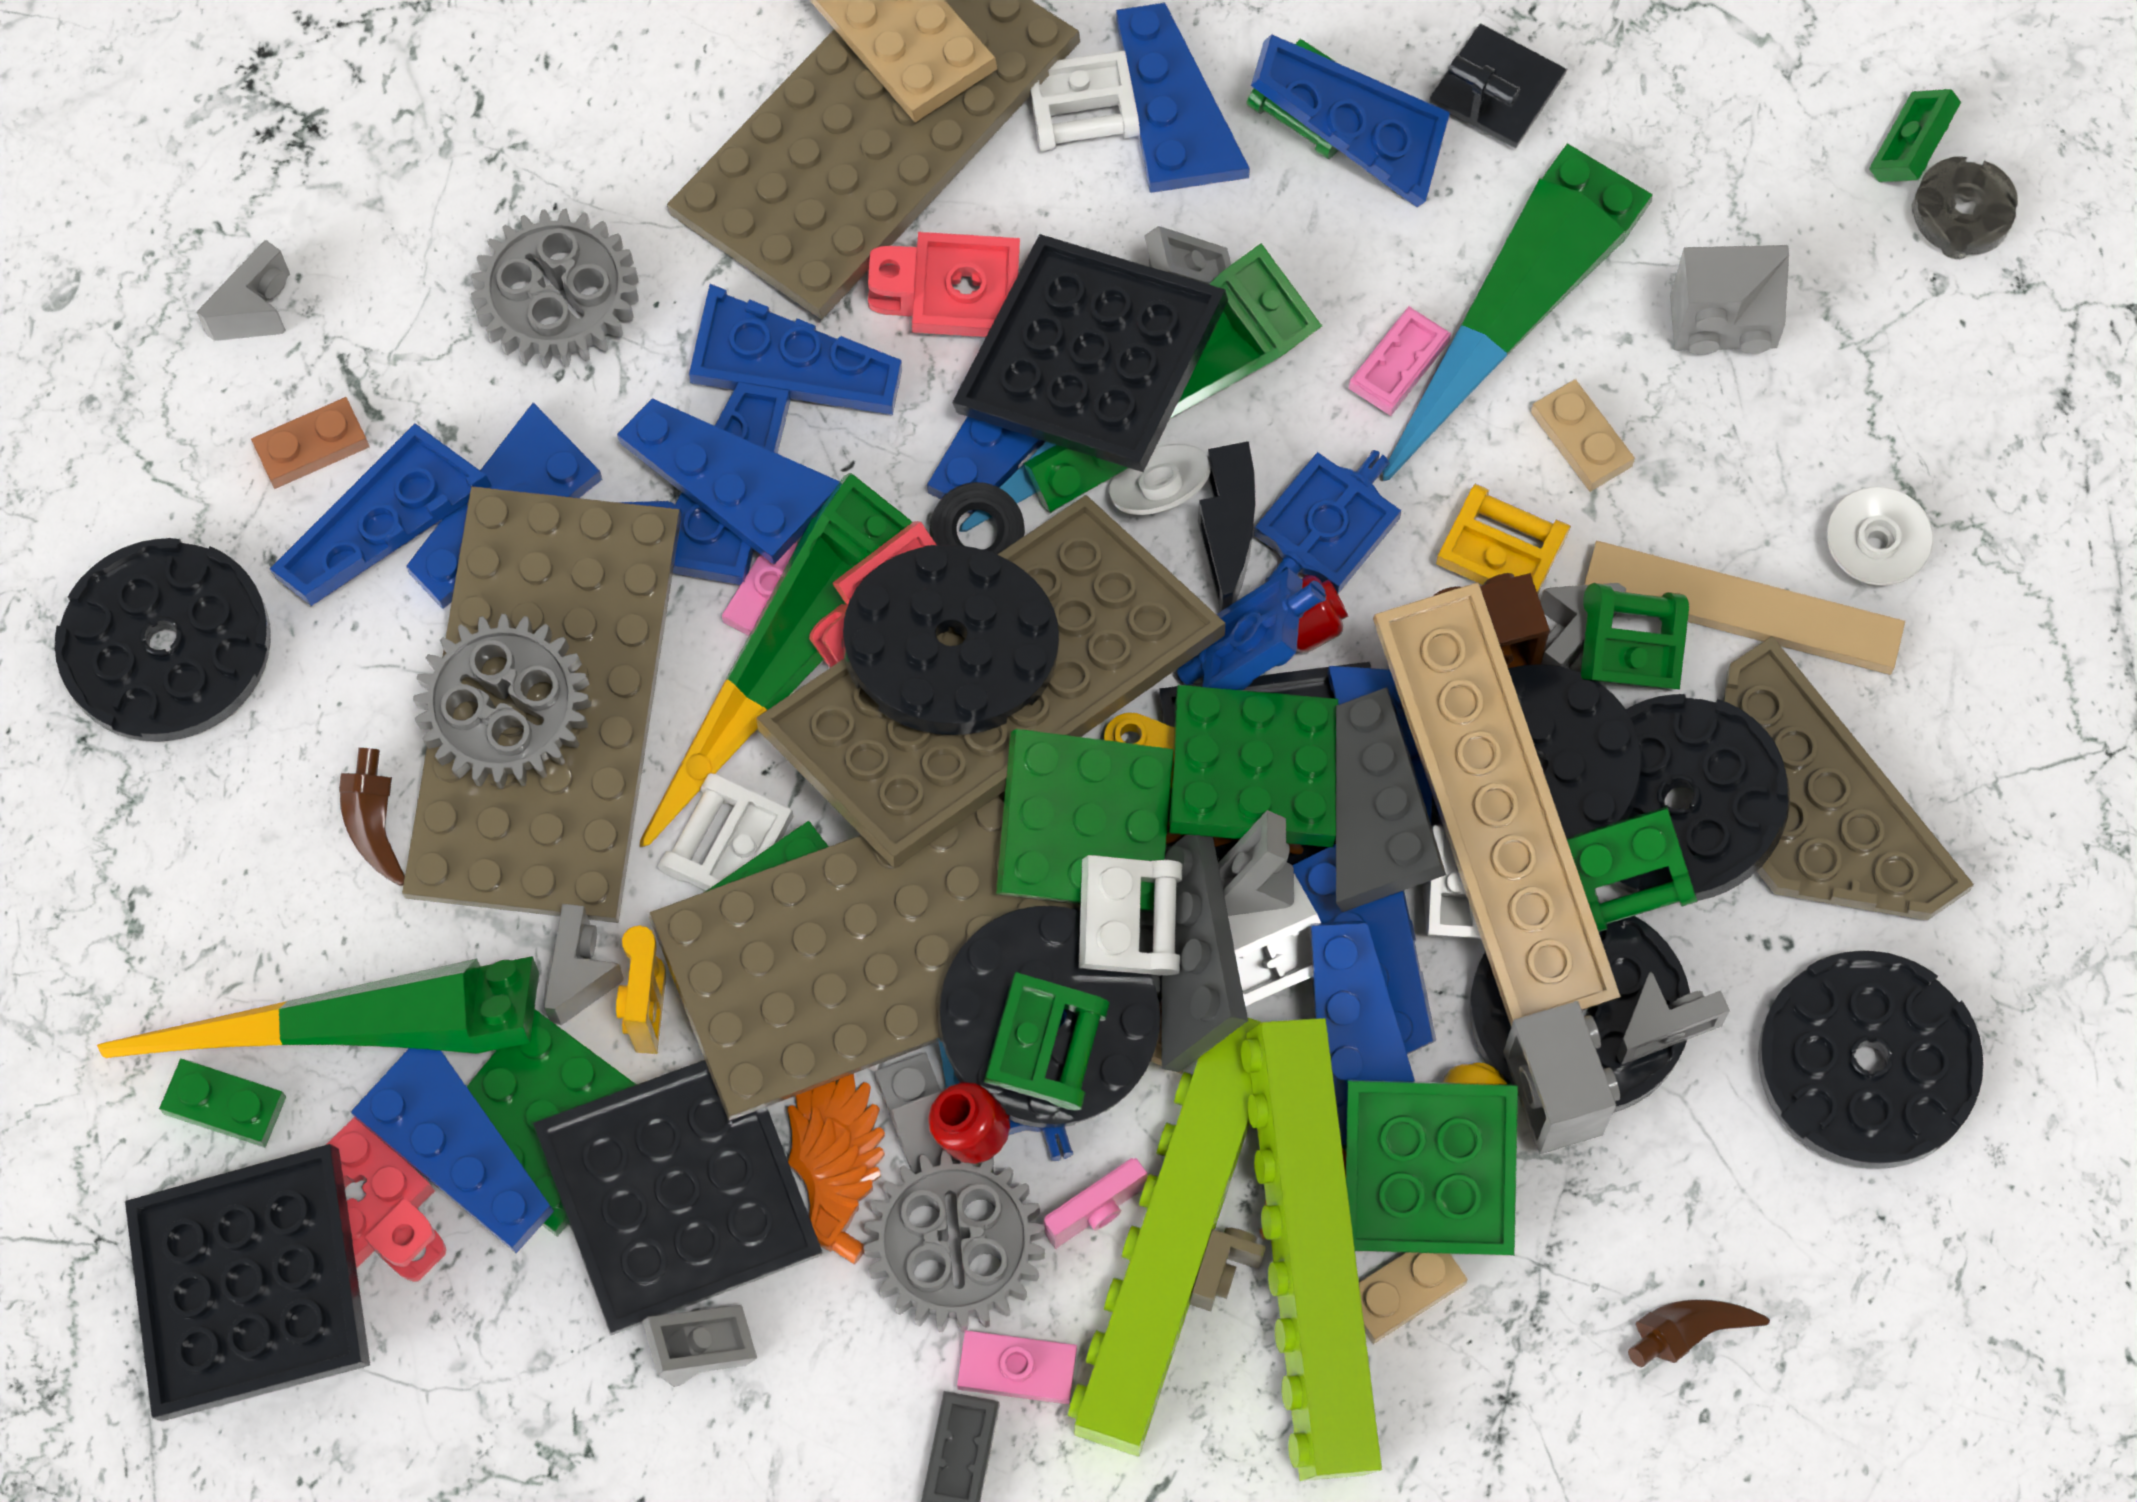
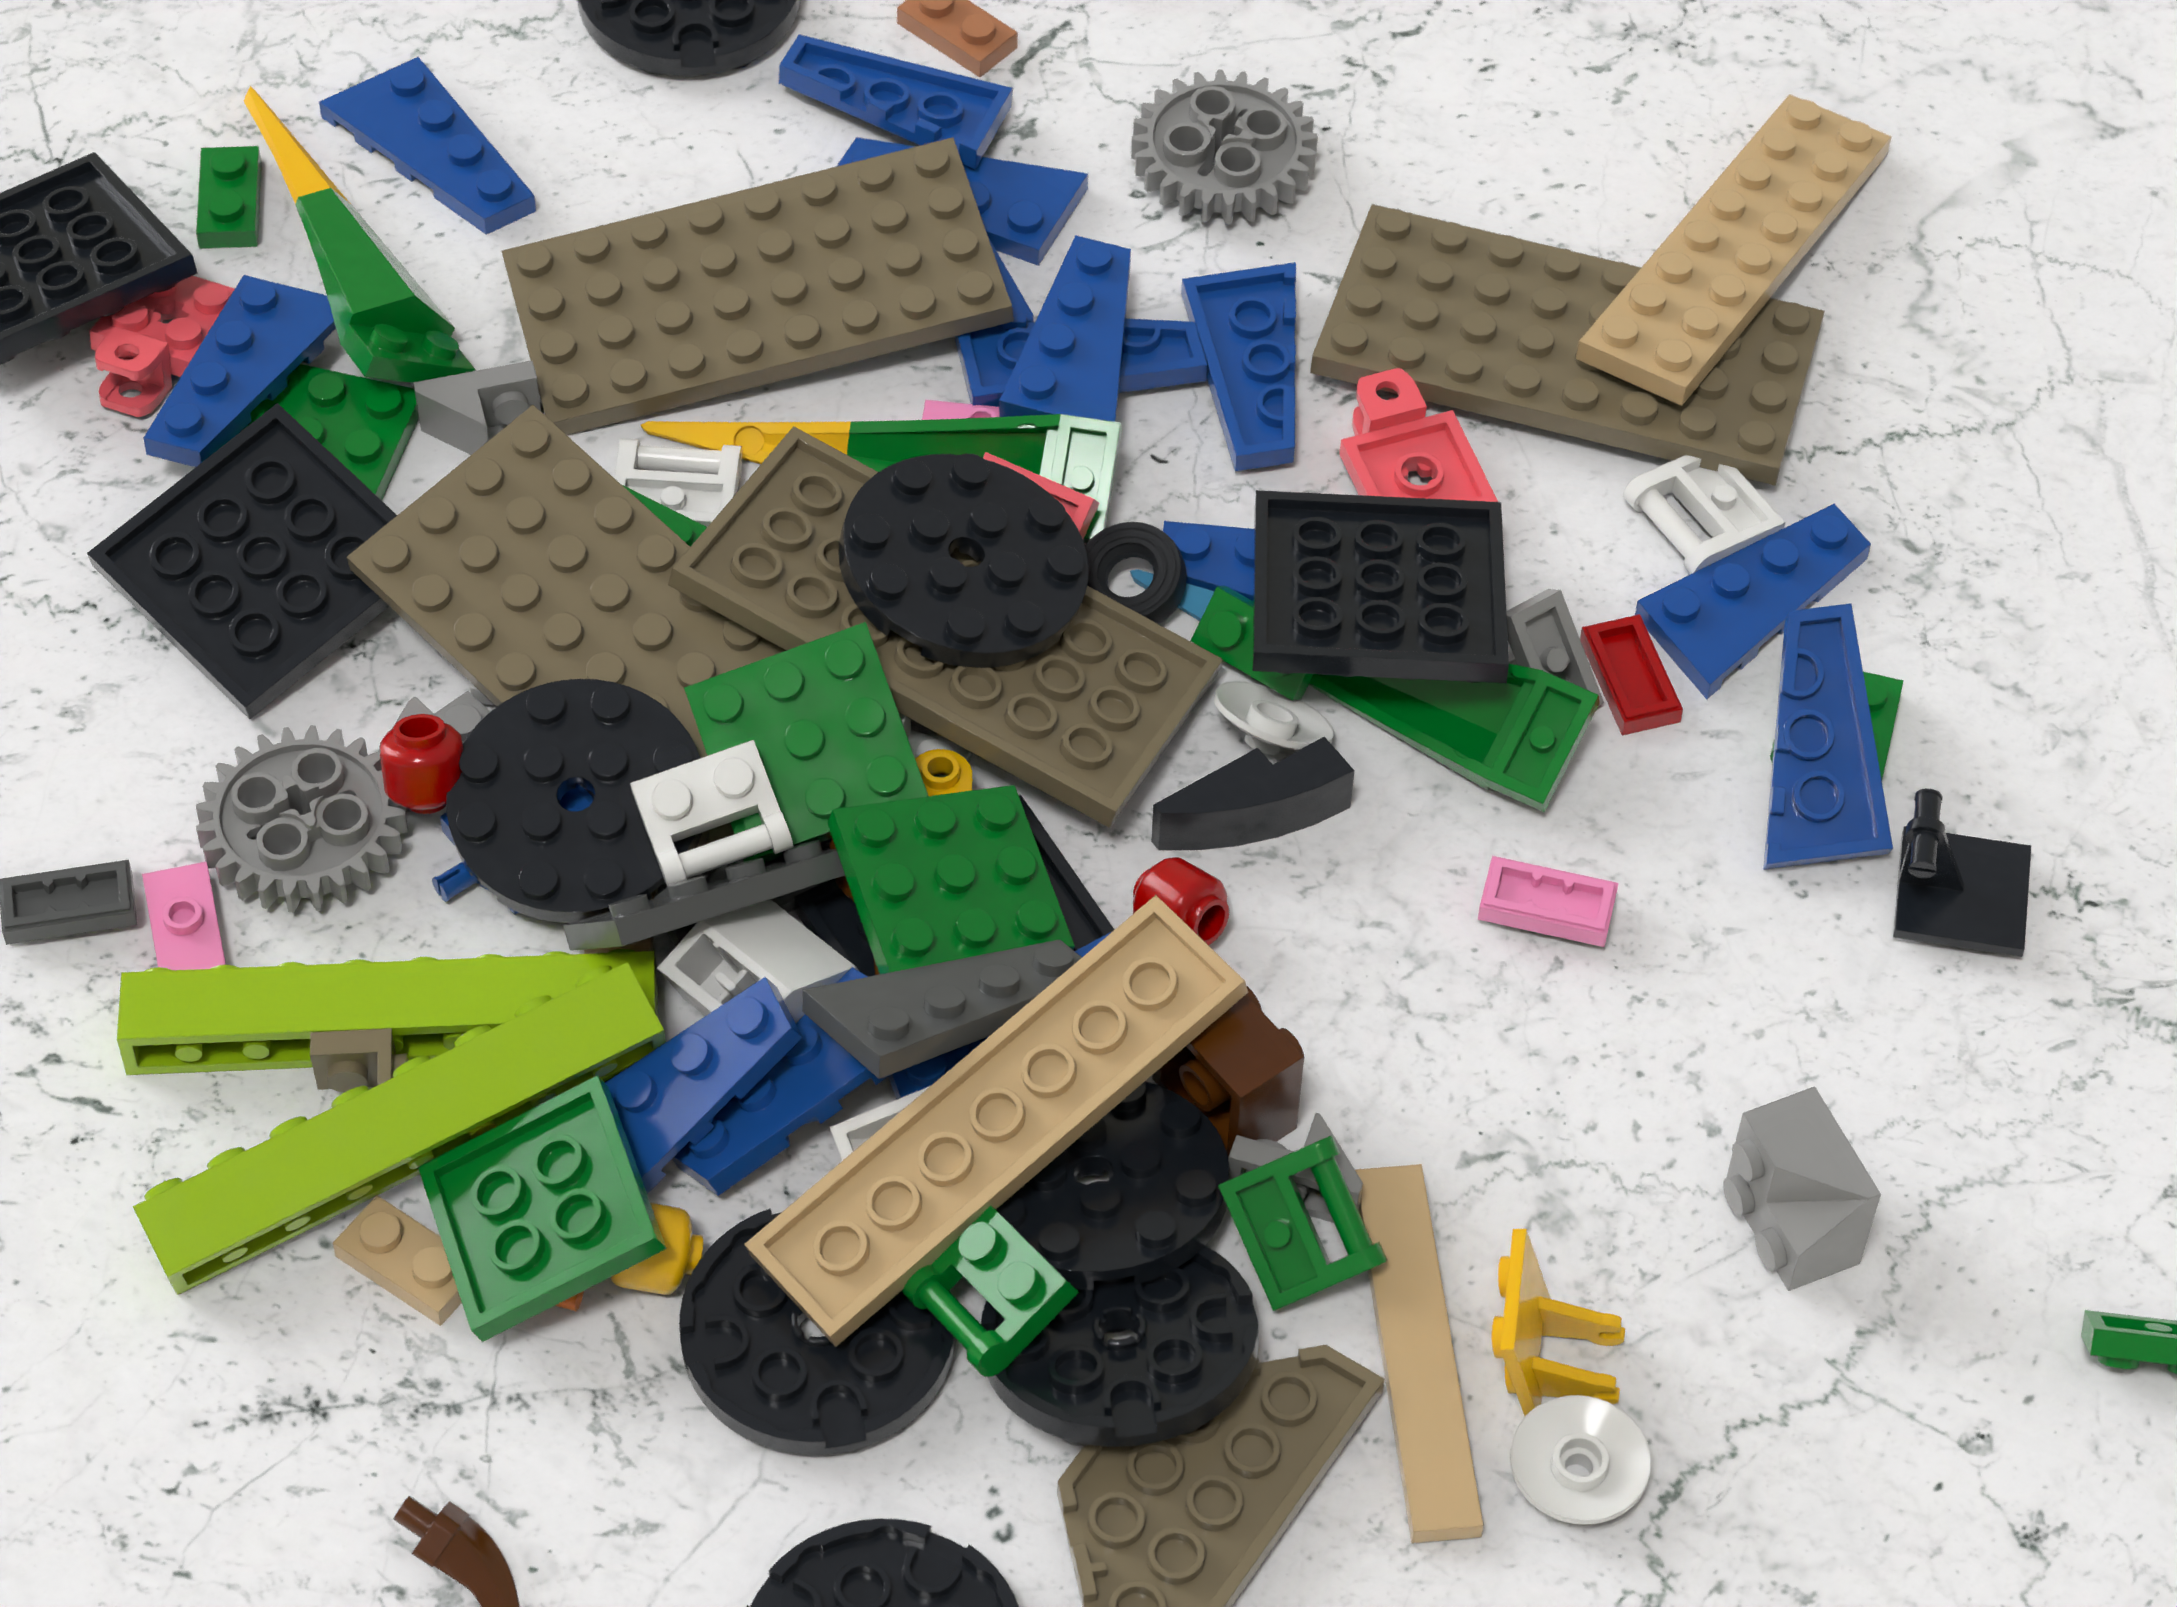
camera: 65 degrees right, 15 degrees down
(219, 916) = (434, 141): none -> blue wing
(364, 814) = (594, 190): reddish brown bar -> none
(475, 740) = (760, 241): light grey gear -> none
(642, 999) = (444, 438): yellow plate -> none
(699, 1342) = (103, 627): light grey slope -> none
(836, 1158) = (362, 692): orange animal -> none
(1028, 1038) = (527, 764): green plate -> none
(1096, 1204) = (385, 924): bright pink plate -> none
(1212, 216) = (1631, 674): none -> red tile
(1256, 869) = (816, 922): light grey slope -> none
(1258, 634) = (1104, 846): blue plate -> none
(1329, 520) = (1307, 894): blue plate -> none
(1484, 552) = (1347, 1072): yellow plate -> none
(1561, 236) = (1796, 1011): green plate -> none
(1561, 1076) = (680, 1280): light grey slope -> none
(1582, 435) = (1555, 1116): tan plate -> none
(1658, 1027) = (814, 1385): light grey slope -> none
(1754, 515) = (1533, 1314): none -> yellow plate
(1958, 232) = (2086, 1465): clear smoke plate -> none

